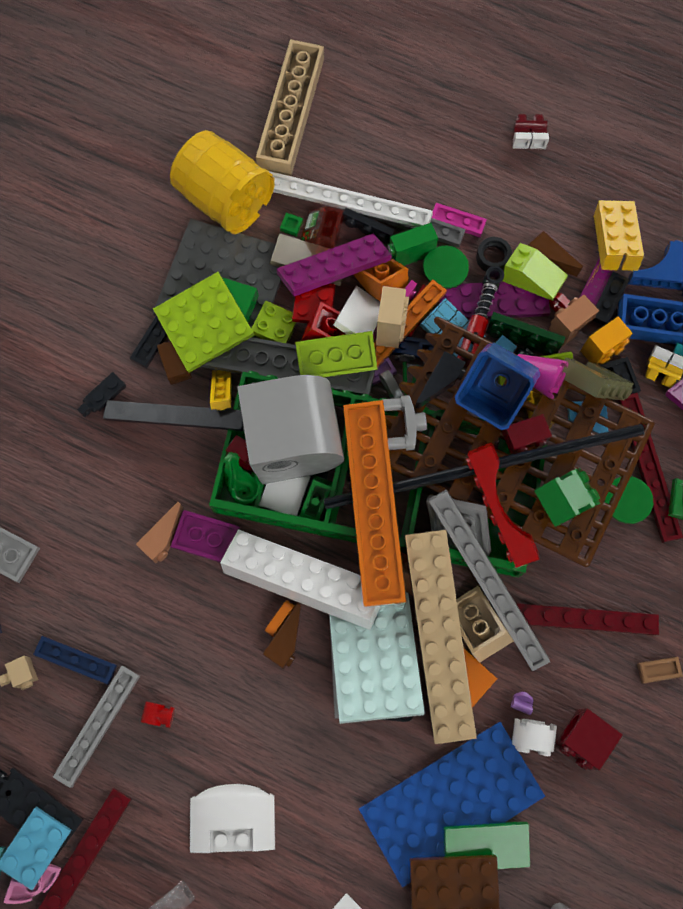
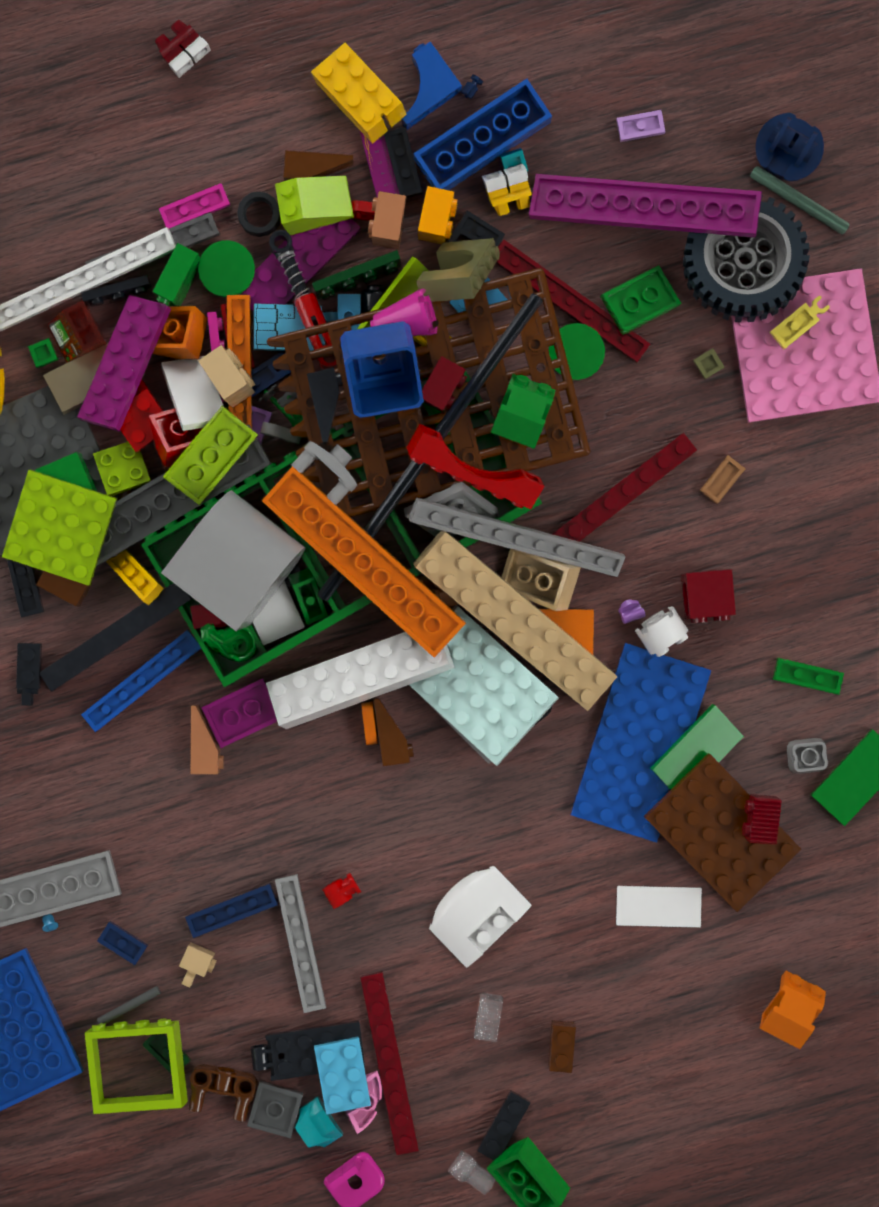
camera: 40 degrees left, 15 degrees up
(162, 460) = (141, 681): none -> blue plate
(612, 865) = (808, 676): none -> green tile

